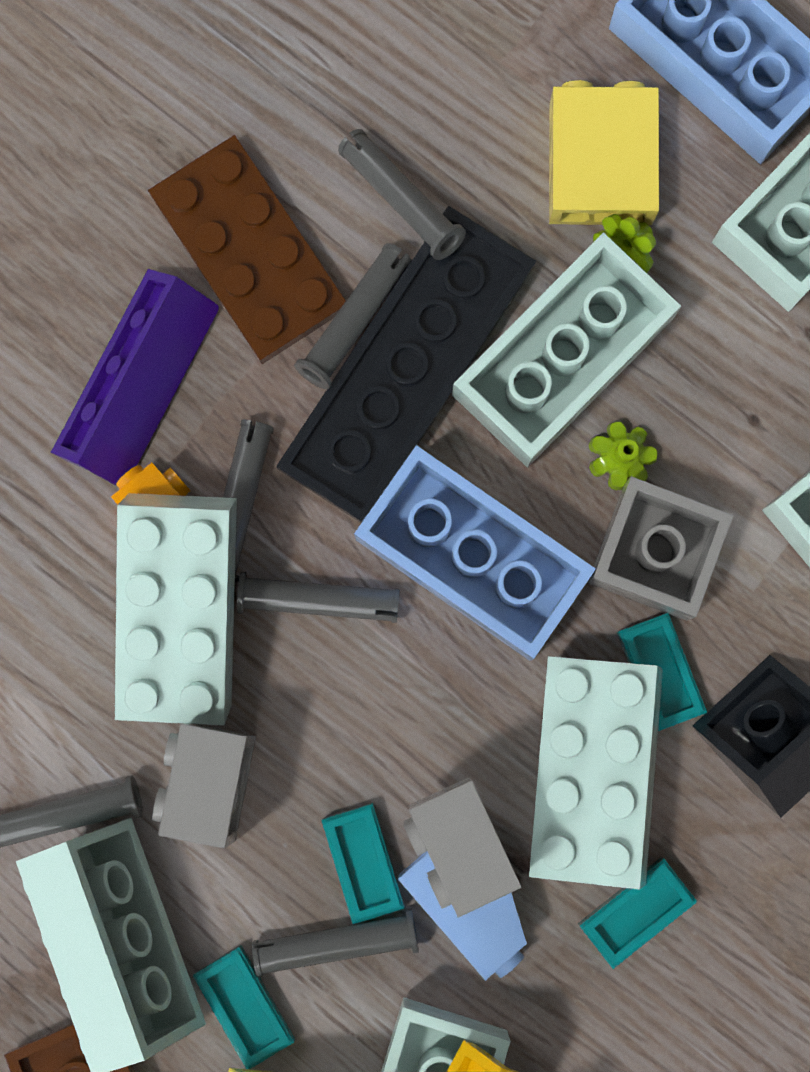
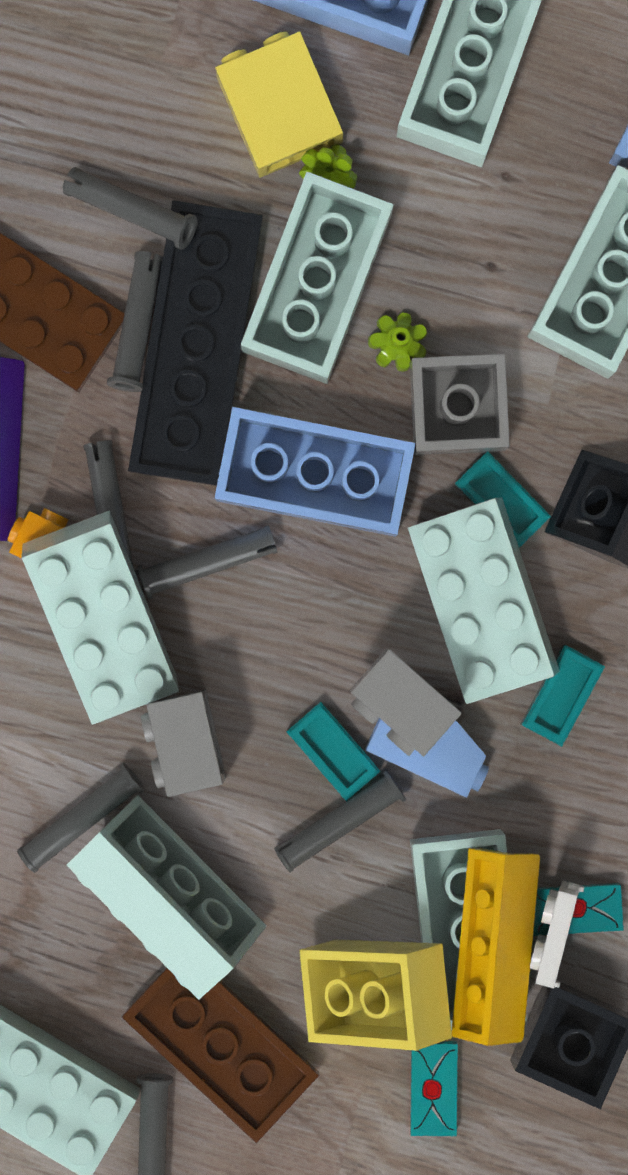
camera: 25 degrees left, 5 degrees up
(244, 1007) = (290, 901): teal tile -> none

